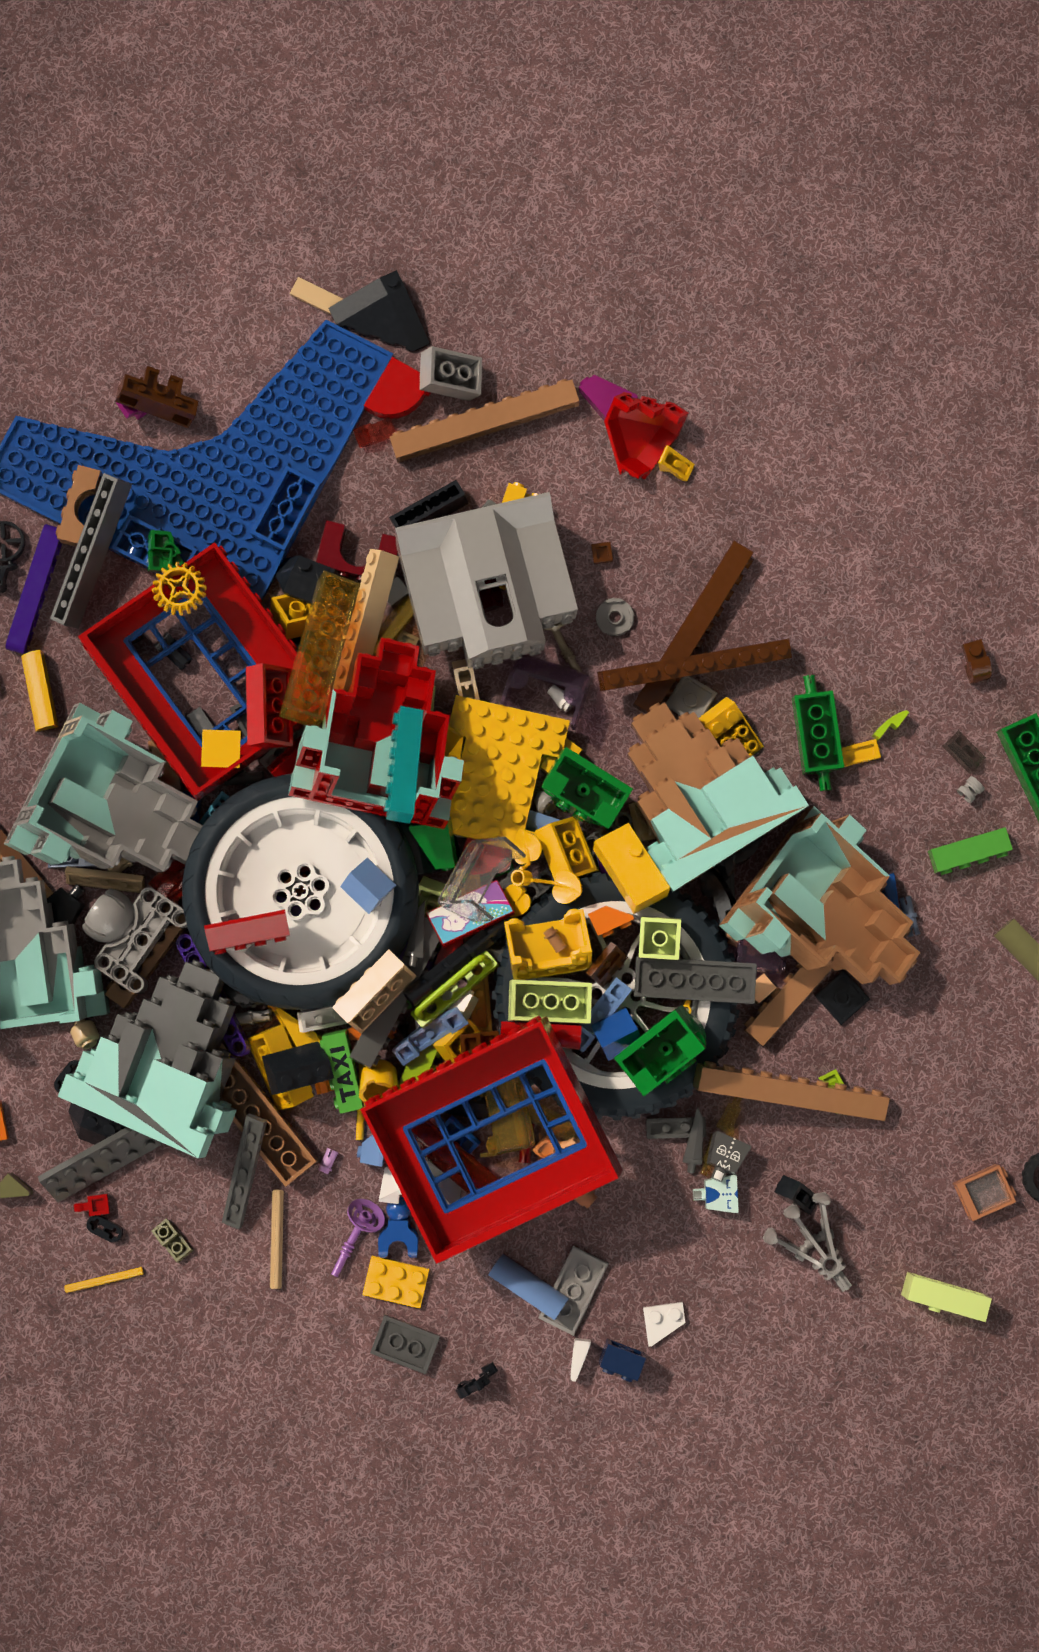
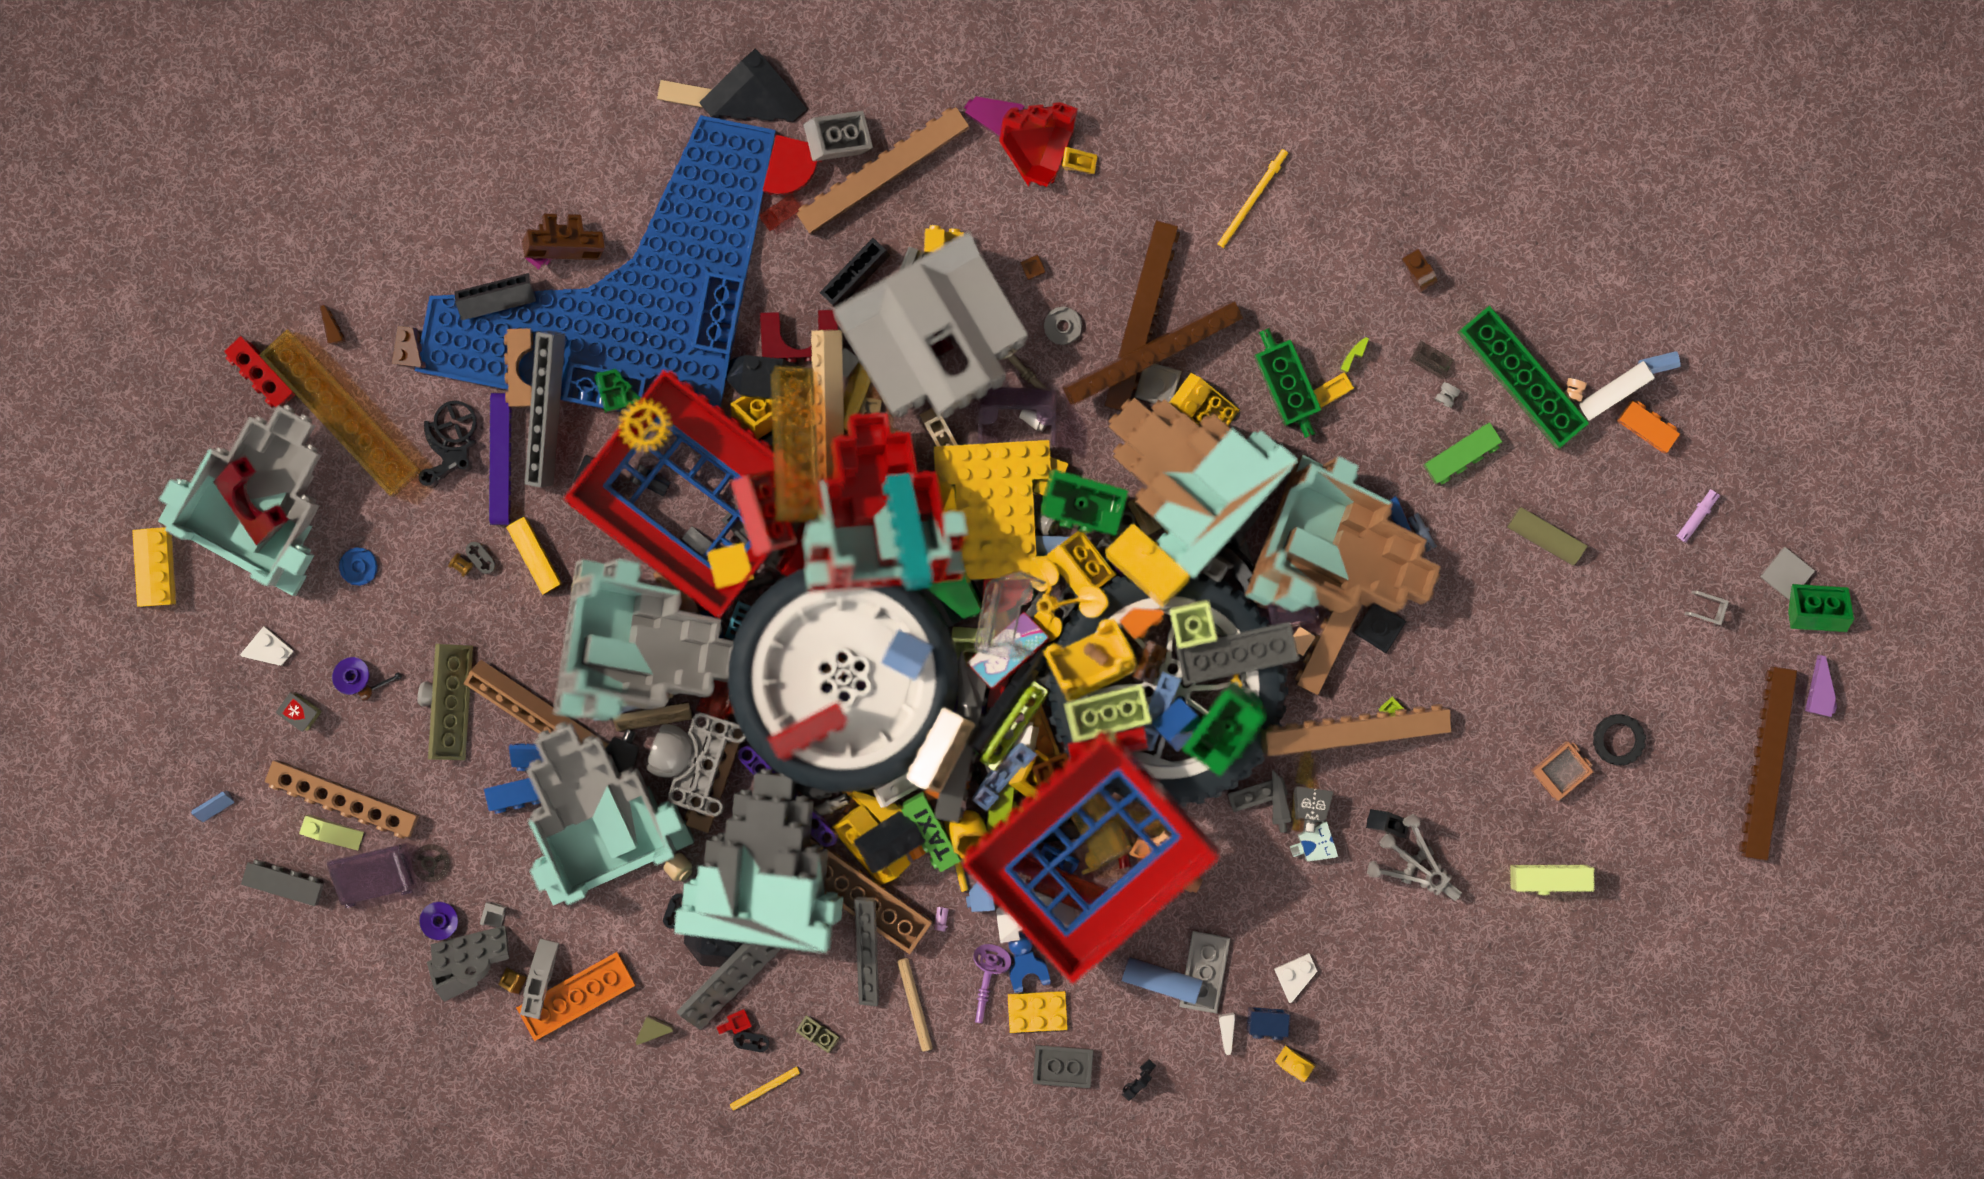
camera: 20 degrees left, 5 degrees up
(77, 432) = (495, 296): none -> black brick
(637, 1410) = (1295, 1063): none -> yellow torso
(698, 891) = (1217, 568): none -> dark grey panel
(860, 525) = (1273, 167): none -> yellow bar

